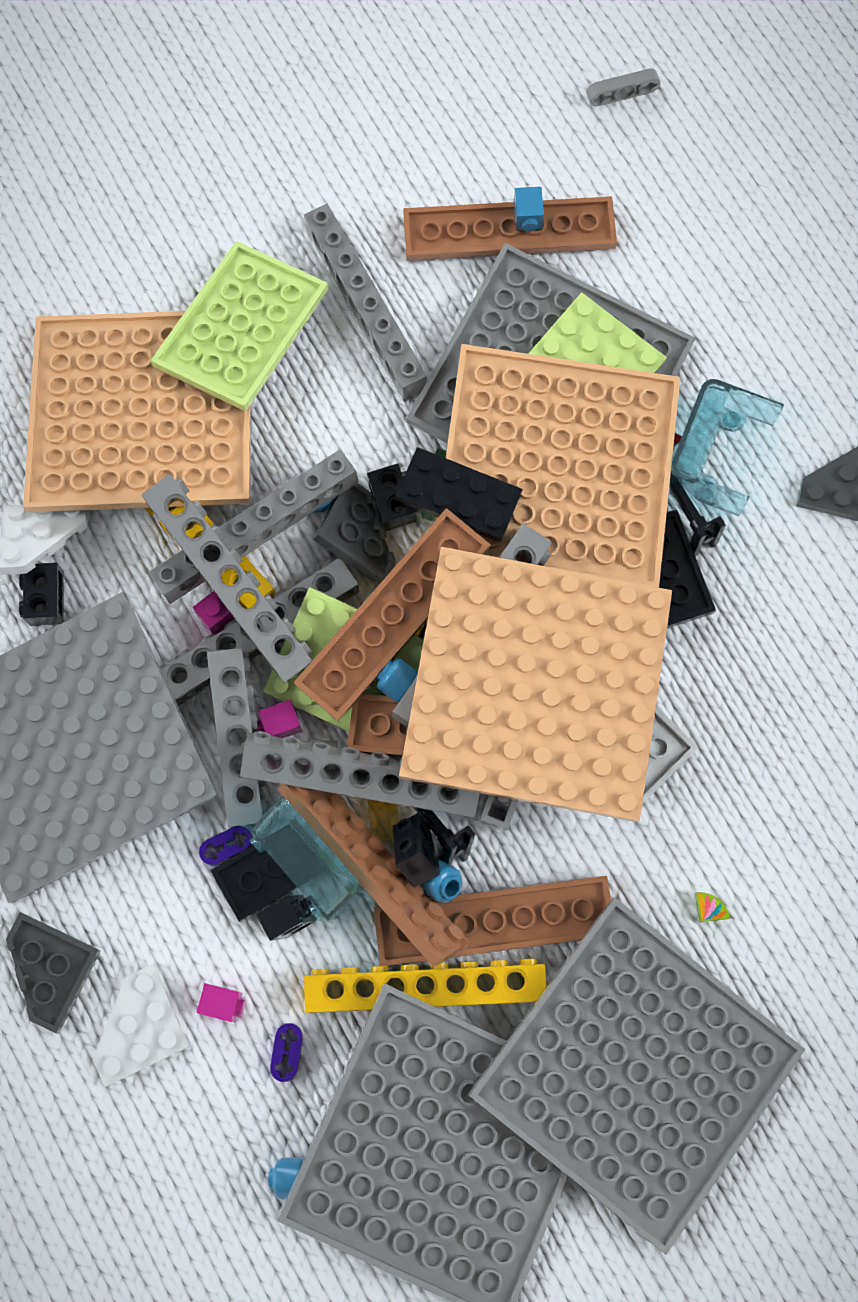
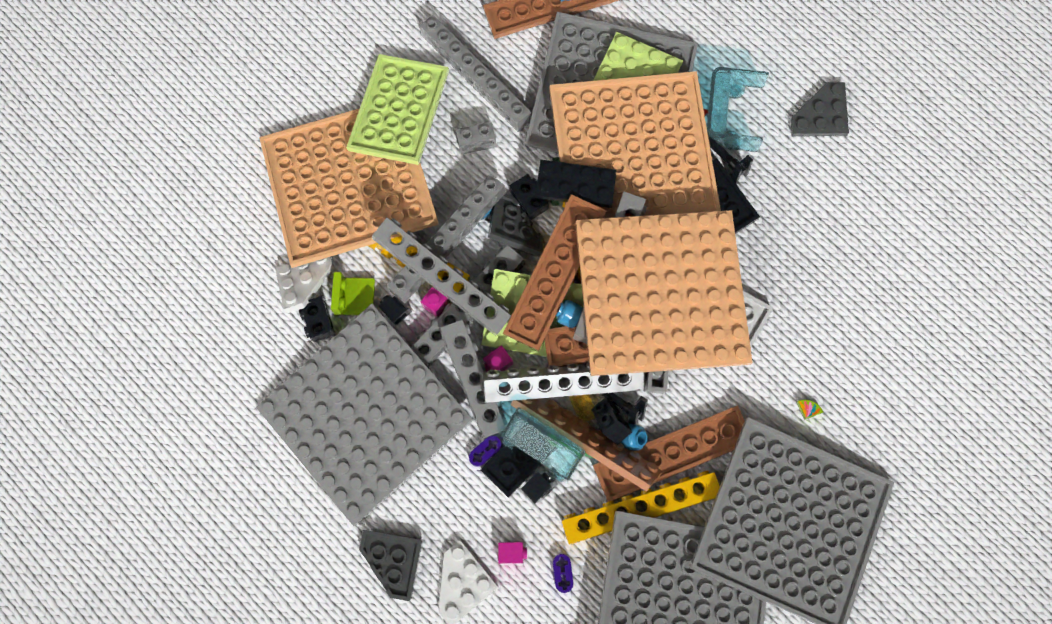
camera: 10 degrees left, 0 degrees up
(99, 571) = (351, 295): none -> lime bracket
(154, 608) = (394, 309): none -> black window
(340, 394) = (476, 138): none -> light grey brick

